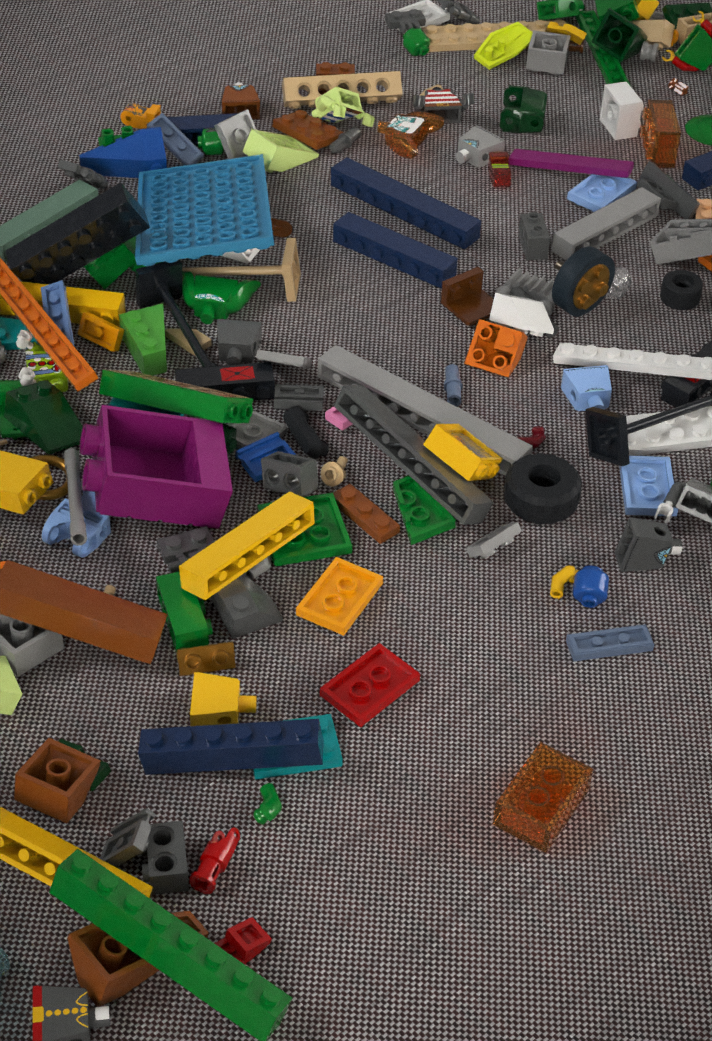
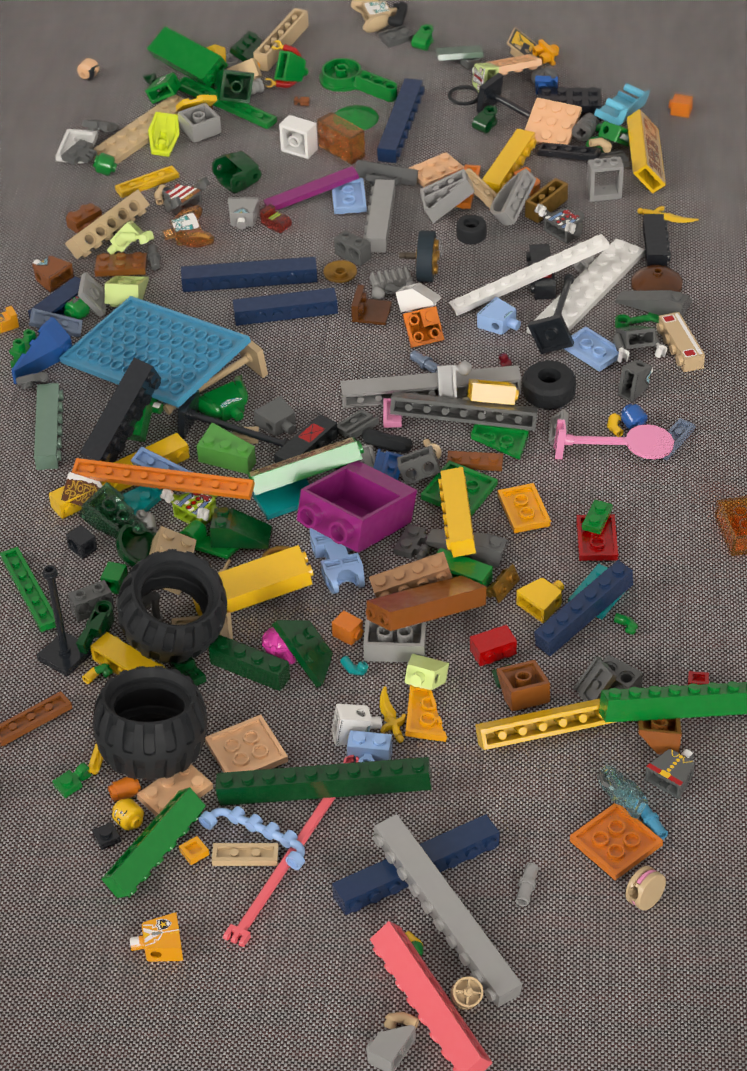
camera: 40 degrees left, 0 degrees up
(77, 525) = (360, 565): light grey piece -> none
(93, 712) = (493, 645): none -> red brick
(100, 331) = (195, 463): light orange plate -> none
(114, 576) = (411, 575): none -> medium nougat brick
(214, 860) = (641, 663): red piece -> none
(284, 359) = (319, 409): light grey tile -> none
(393, 661) = (597, 517): none -> green plate
(431, 408) = (447, 378): none -> light grey gear
(440, 77) = (147, 181): none -> yellow tile
(491, 250) = (340, 271): none -> pearl gold dish
(561, 622) = (642, 440): none -> bright pink piece

